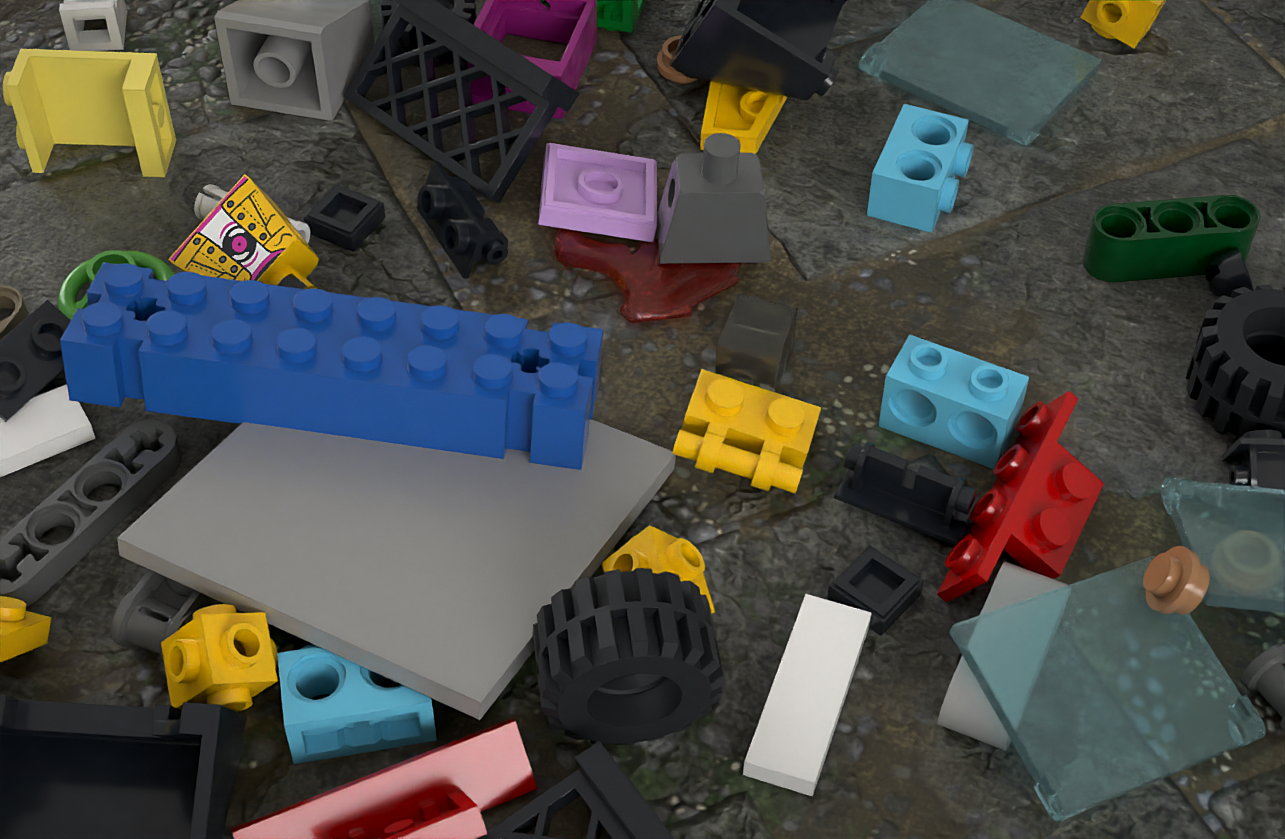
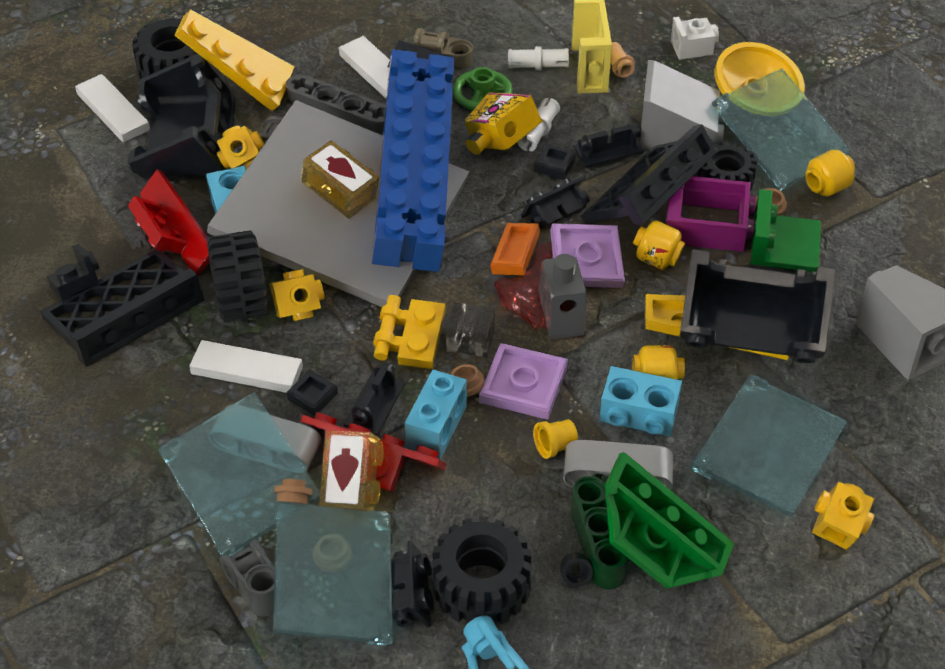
camera: 85 degrees right, 0 degrees up
(67, 205) = (538, 58): none -> white pin
(333, 141) = (601, 148): none -> black hinge
(388, 472) = (340, 179): none -> clear yellow brick
(562, 280) = (515, 249): none -> orange tile
(597, 112) = (659, 245): none -> yellow head
(848, 143) = (659, 361): none -> yellow head
(858, 304) = (523, 381): none -> lavender tile
(863, 367) = (474, 377): none -> medium nougat plate
(990, 271) = (553, 437): none -> yellow piece
(1046, 208) = (599, 457): none -> light grey beam
(1105, 504) = (350, 470): none -> brick
(1185, 160) = (660, 528): none -> green wedge

